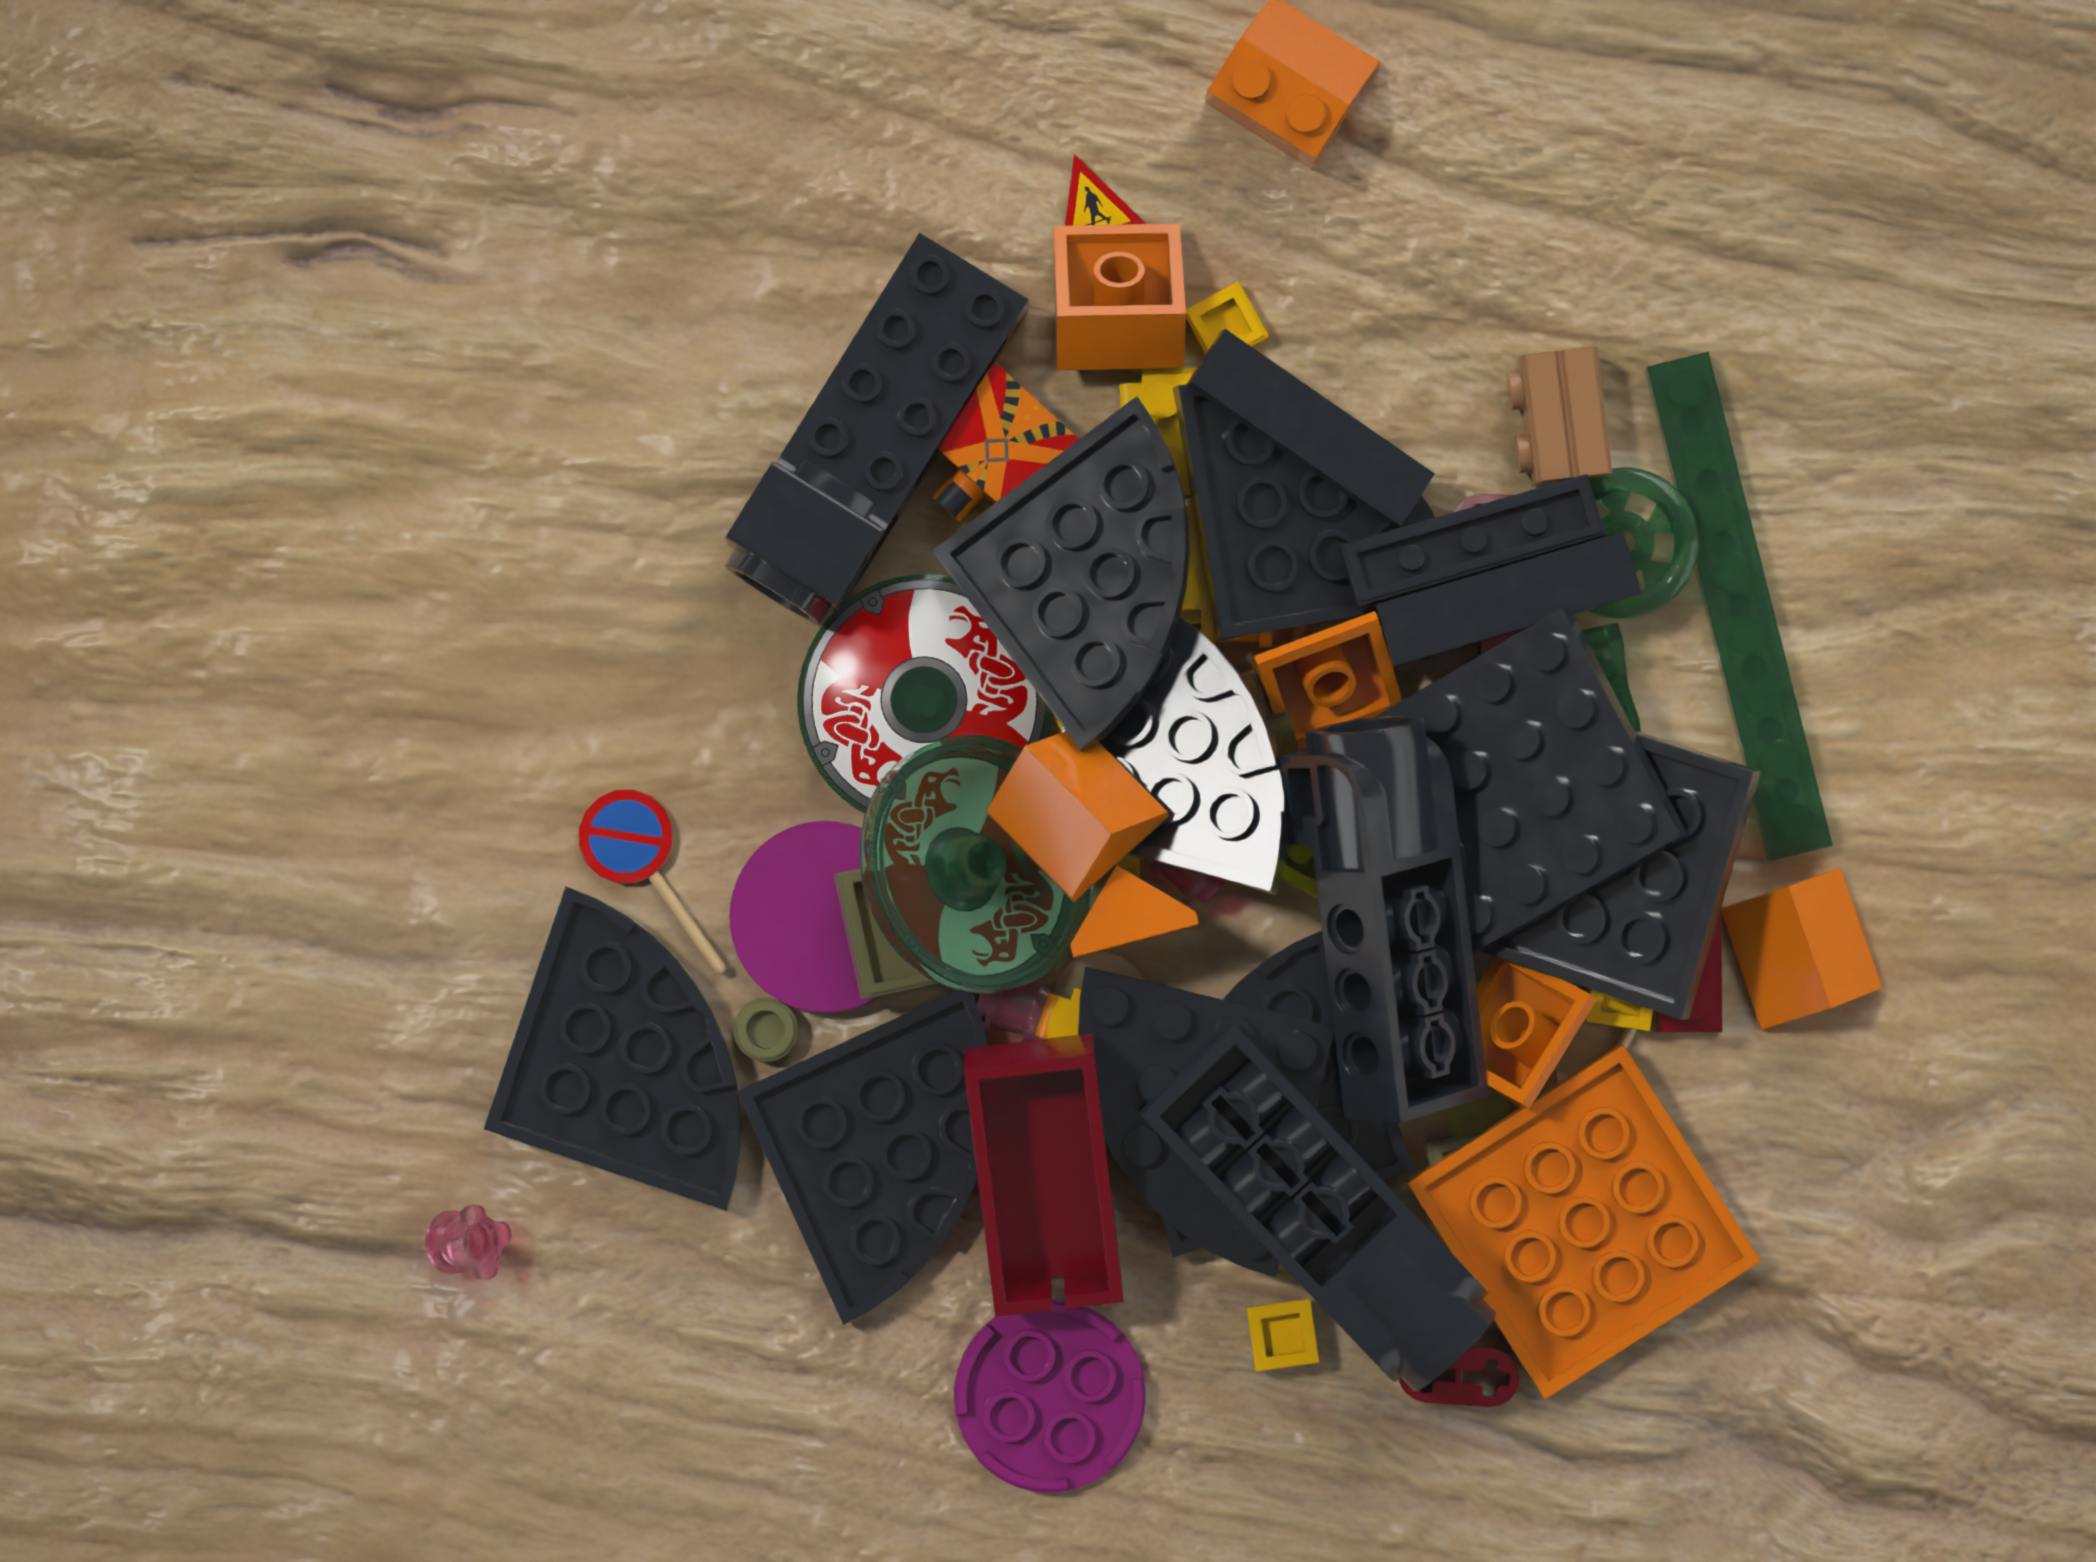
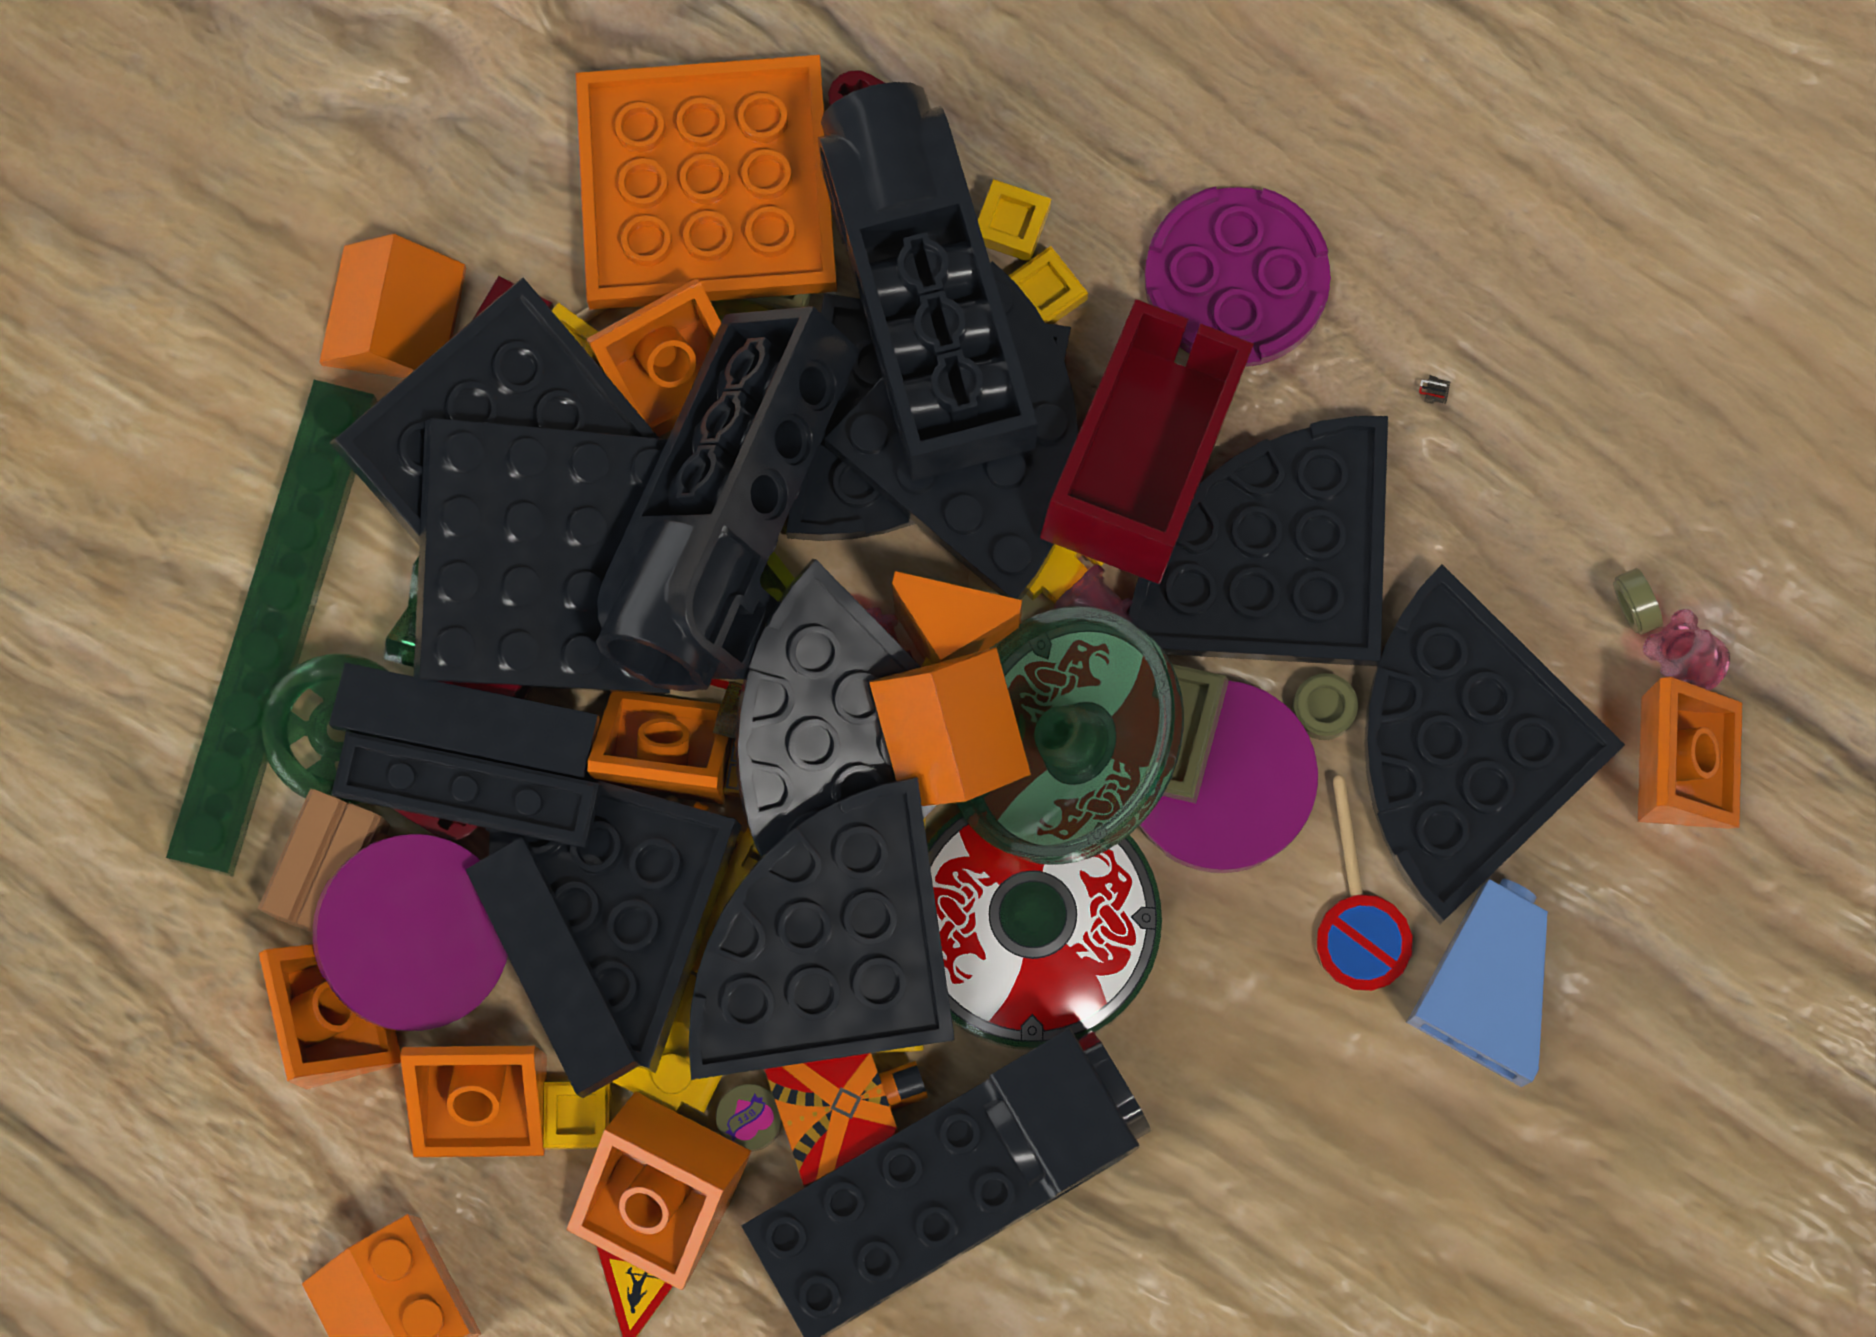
camera: 155 degrees left, 10 degrees down
(418, 1151) = (1689, 756): none -> orange slope
(499, 853) = (1491, 984): none -> medium blue slope
(535, 1270) = (1638, 601): none -> olive tile
(813, 1381) = (1436, 390): none -> clear smoke piece
(1077, 400) = (749, 1117): none -> olive tile
(1218, 1288) = (1050, 286): none -> yellow tile
(1317, 288) = (475, 1100): none -> orange slope
(1455, 394) = (407, 934): none -> magenta tile
(1485, 297) = (314, 1029): none -> orange slope

